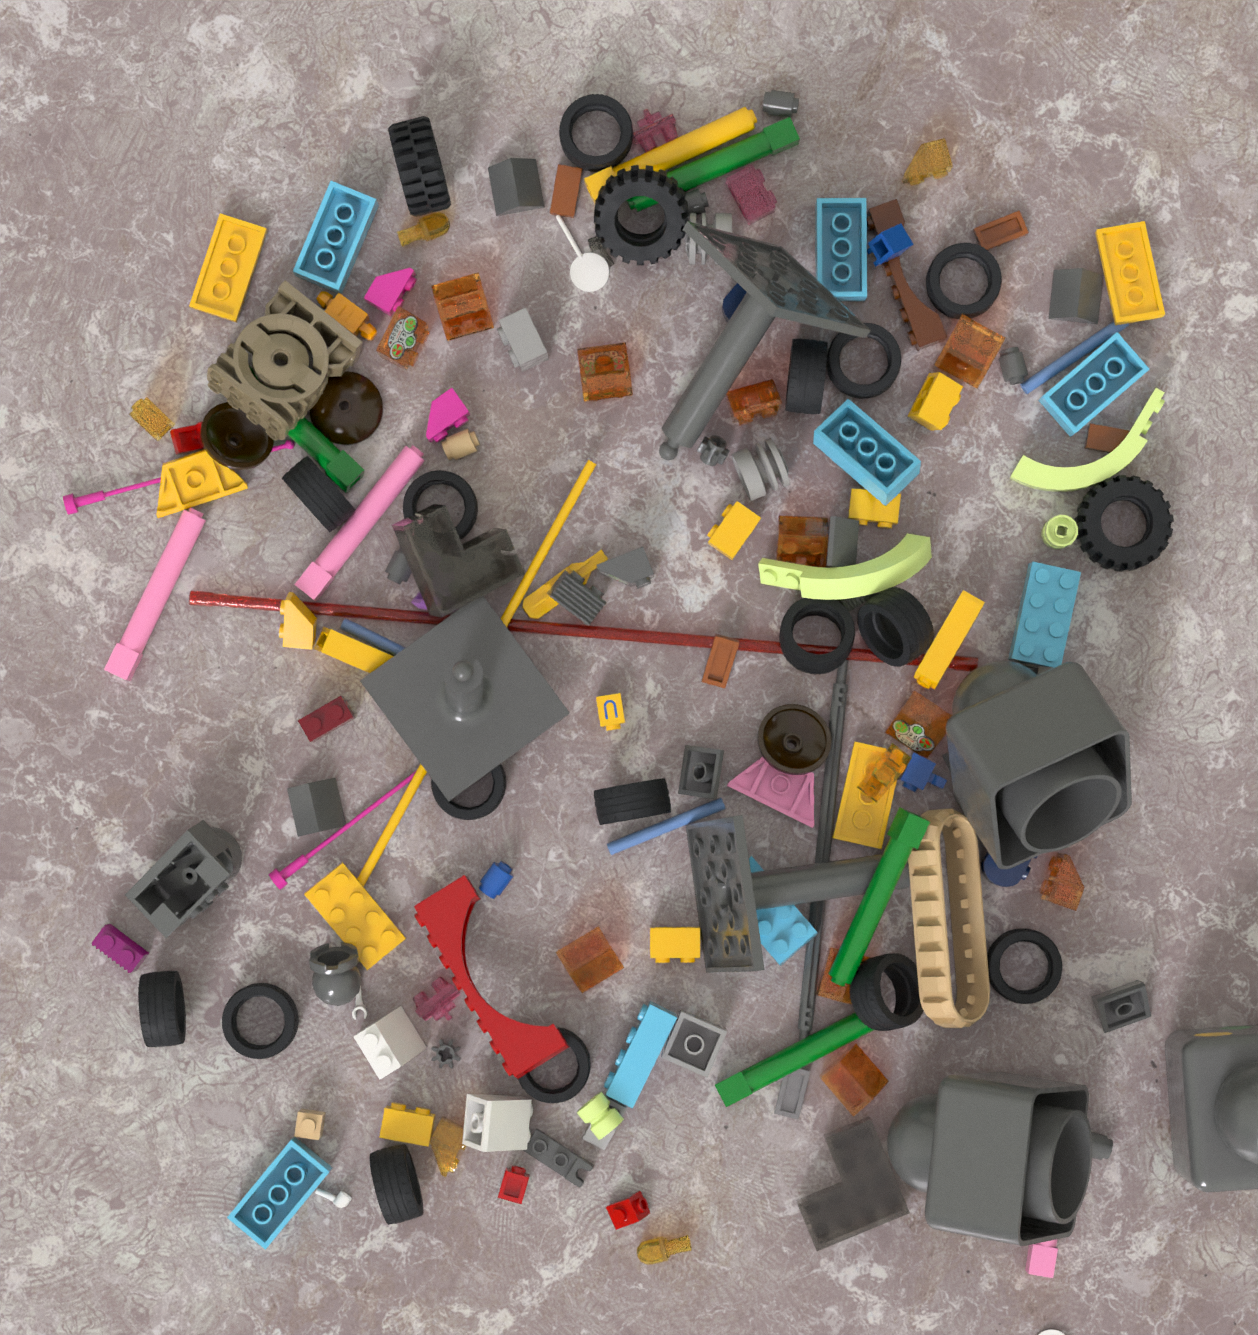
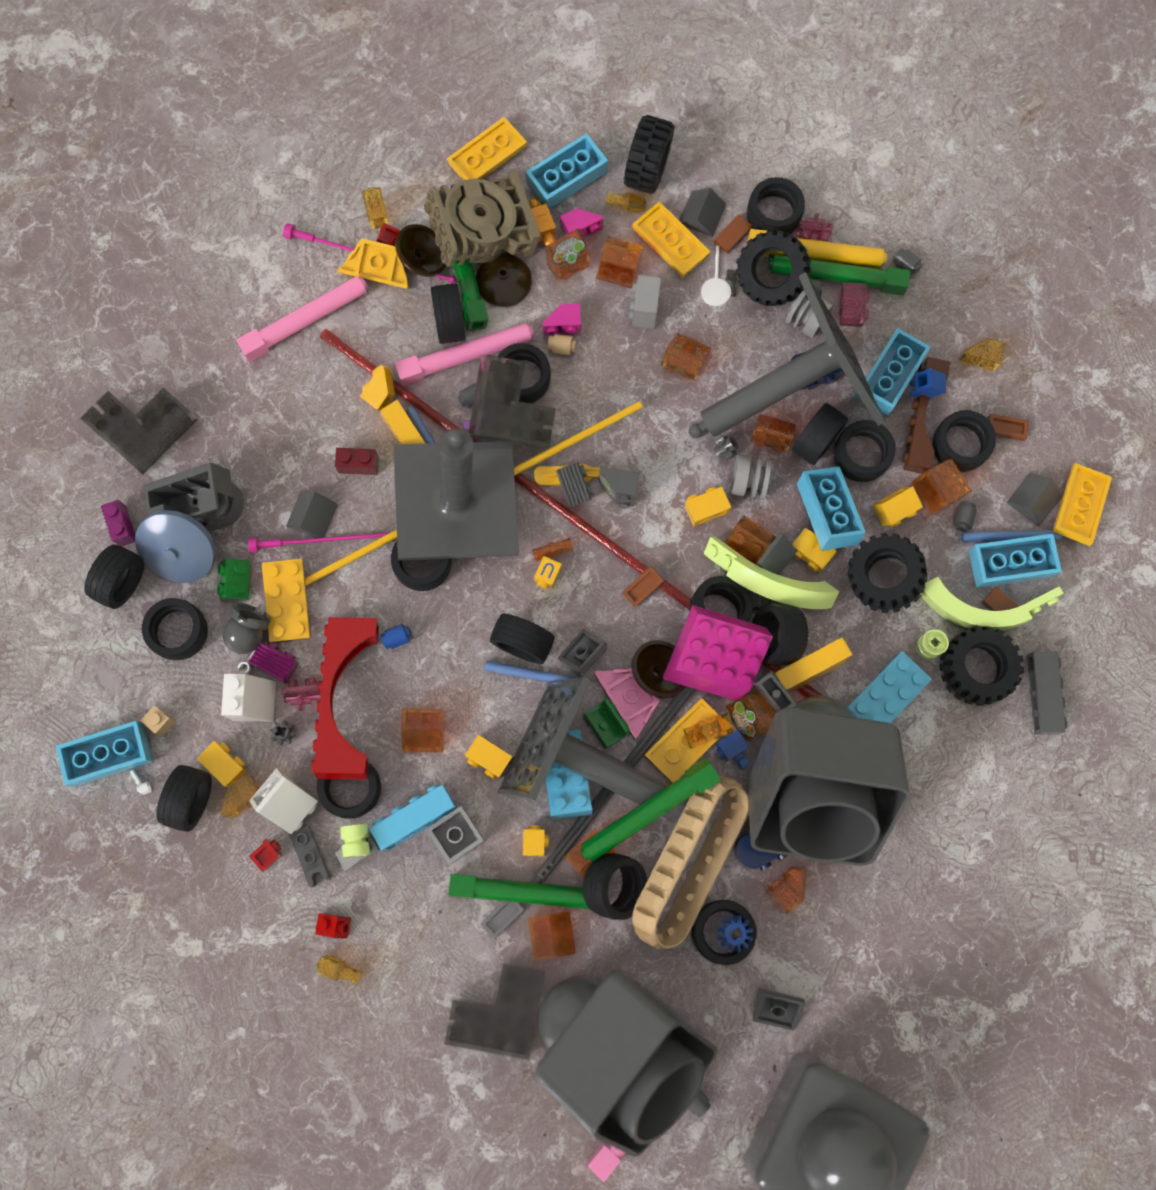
camera: 25 degrees right, 10 degrees down
(77, 842) = (142, 436): none -> clear smoke piece
(204, 936) = (175, 546): none -> sand blue dish
(283, 929) = (234, 579): none -> green bracket
(387, 987) = (274, 662): none -> magenta brick
(502, 243) = (671, 239): none -> yellow plate
(598, 680) = (552, 549): none -> clear orange pin
(773, 830) = (606, 723): none -> green bracket
(779, 998) = (535, 841): none -> yellow brick
(845, 688) = (718, 654): none -> dark pink slope
(929, 695) = (774, 691): none -> dark grey brick
(935, 486) = (883, 548): none -> black tyre
(1028, 958) = (737, 940): none -> blue gear
(1207, 508) = (1046, 693): none -> dark grey brick

